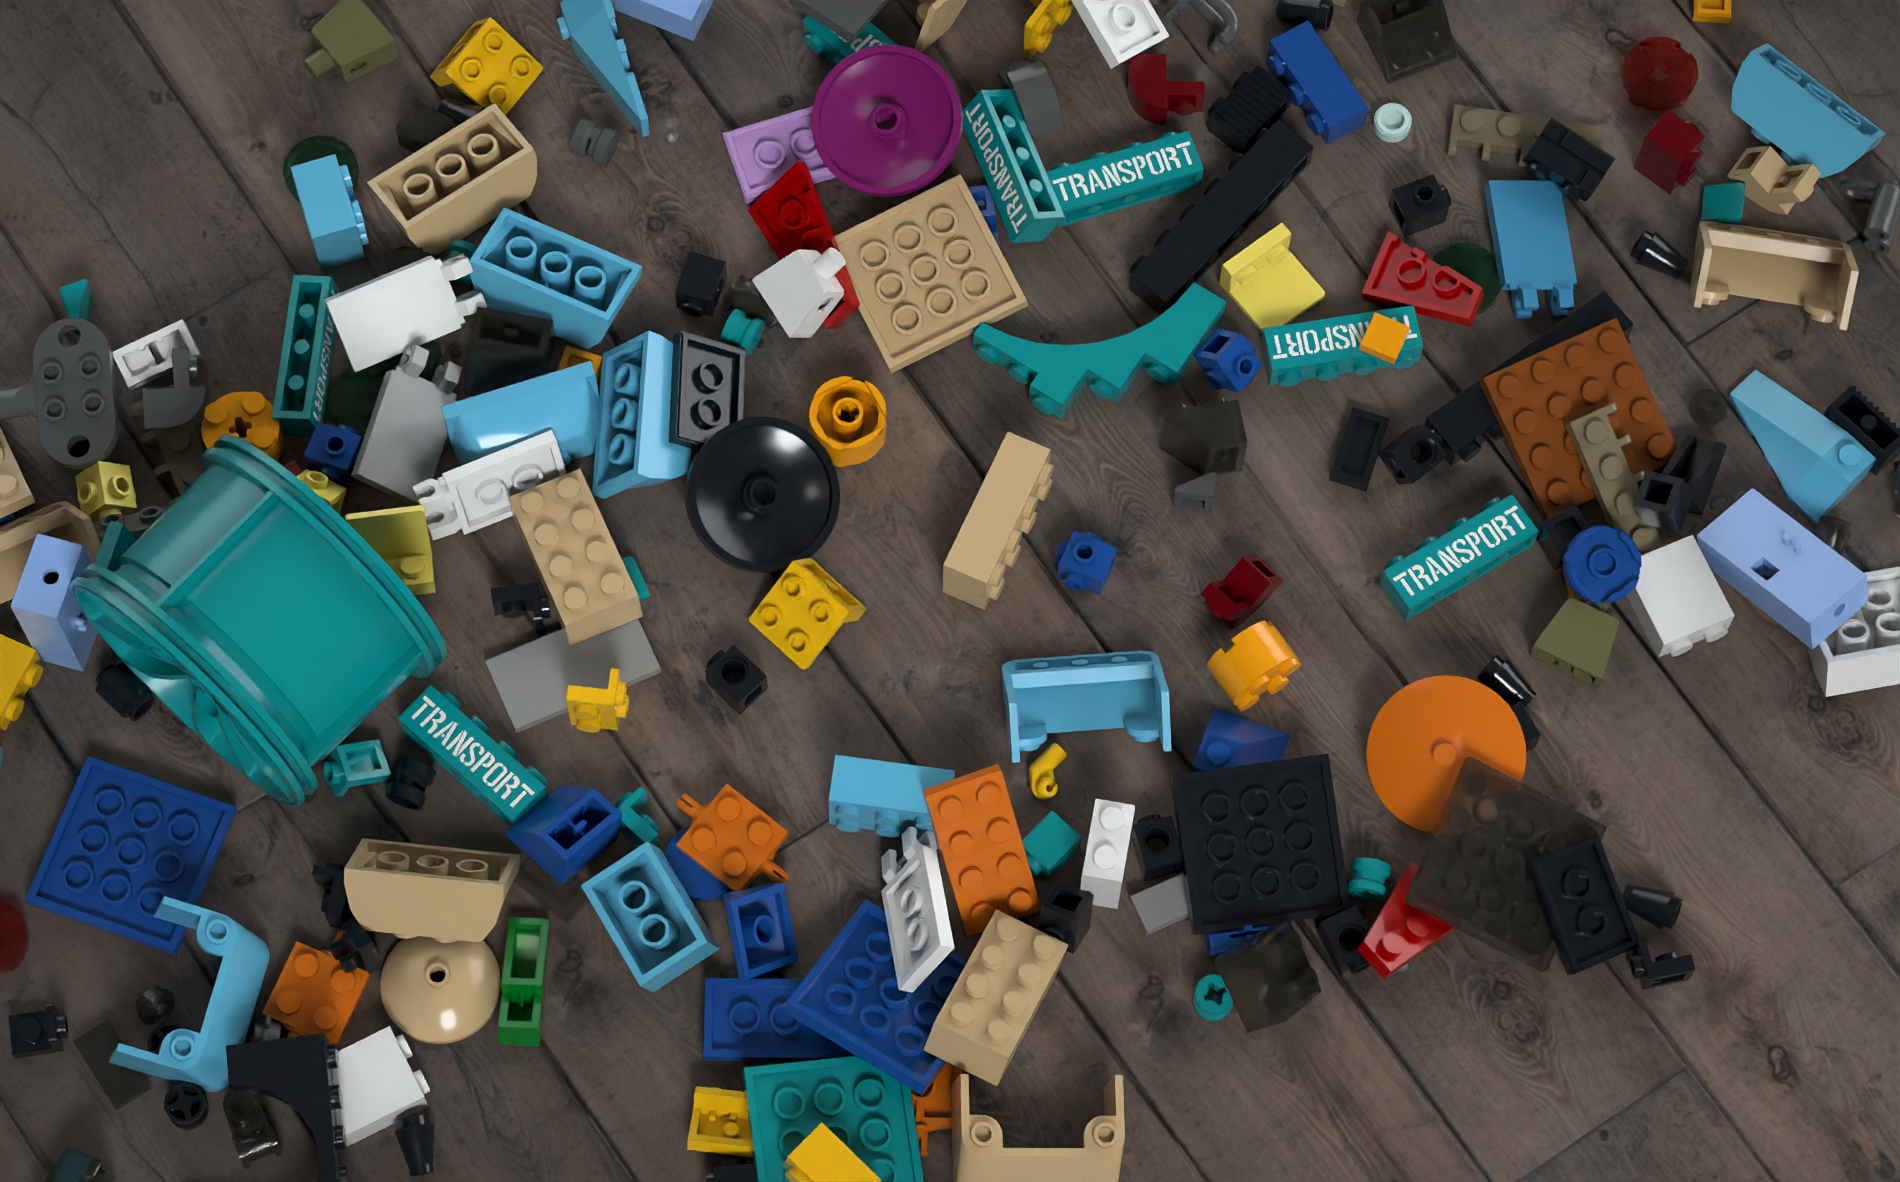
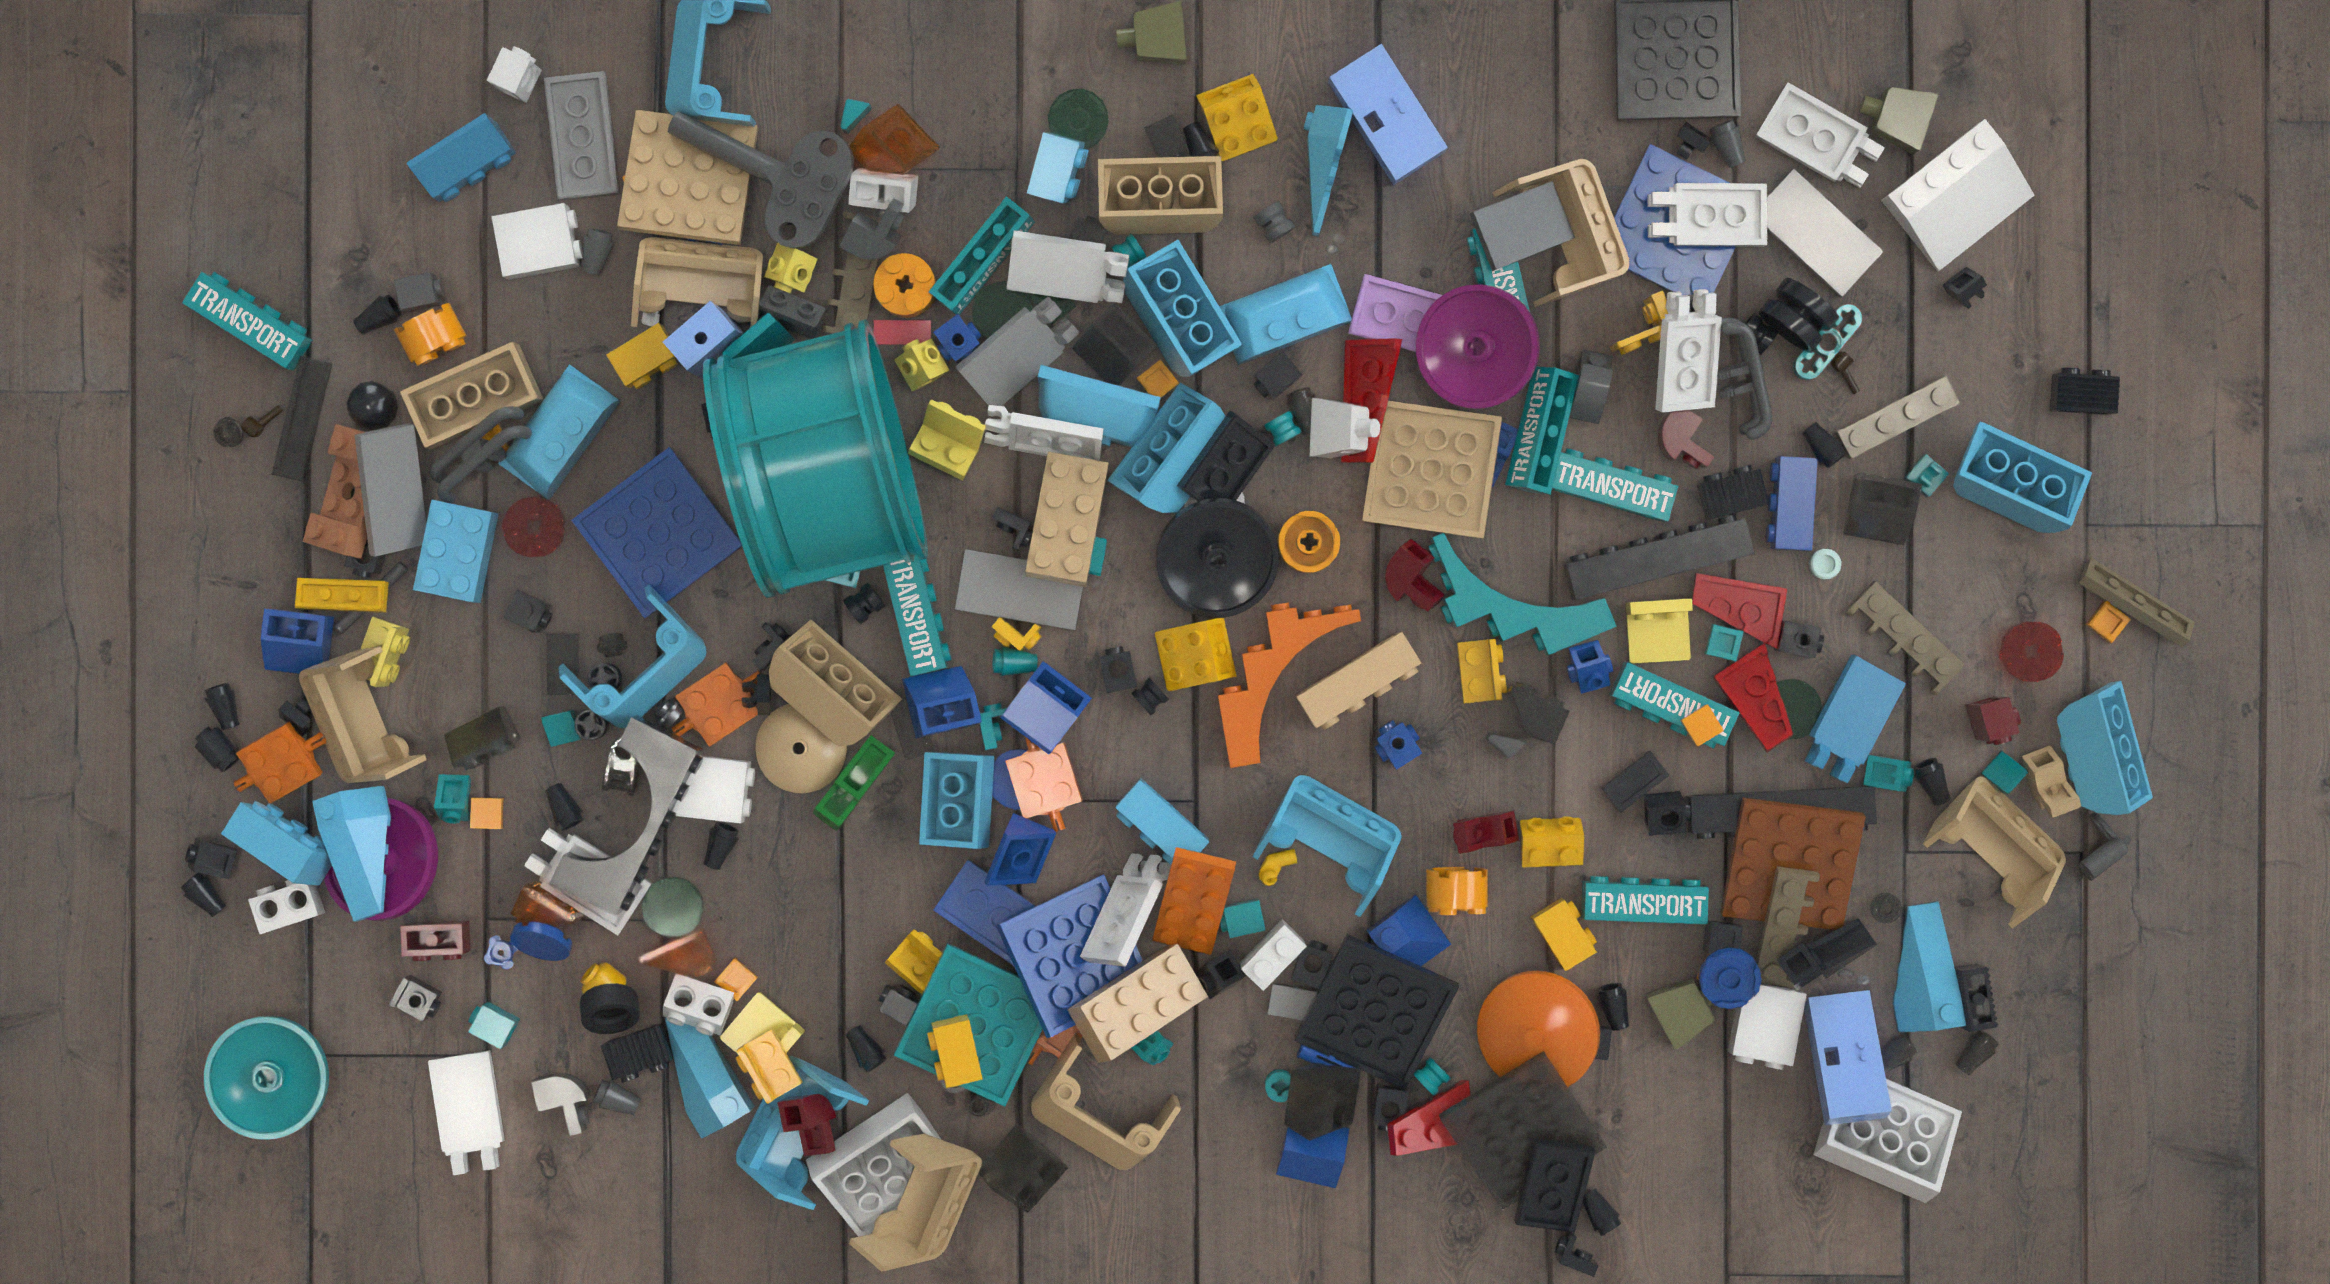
camera: 35 degrees right, 20 degrees up
(135, 306) = (892, 143): none -> clear orange slope
(153, 1133) = (560, 728): none -> teal slope
(614, 742) = (1012, 661): none -> teal cone
(672, 220) = (1287, 313): none -> medium azure windscreen
(683, 757) = (1046, 707): none -> slope
(788, 683) = (1150, 696): none -> black wheel
(891, 529) = (1288, 635): none -> orange arch
(971, 389) = (1405, 576): none -> dark red brick
(1043, 1045) = (1153, 1048): none -> teal bracket
(1120, 439) = (1480, 670): none -> yellow bracket
(1303, 1050) = (1313, 1160): none -> blue slope
(1319, 561) = (1552, 842): none -> yellow bracket
(1340, 209) = (1742, 604): none -> red wing
(1347, 252) = (1724, 642): none -> teal tile
(1399, 642) = (1564, 934): none -> yellow brick
(1567, 161) = (1919, 679): black brick -> none
(1608, 272) = (1888, 773): none -> teal bracket

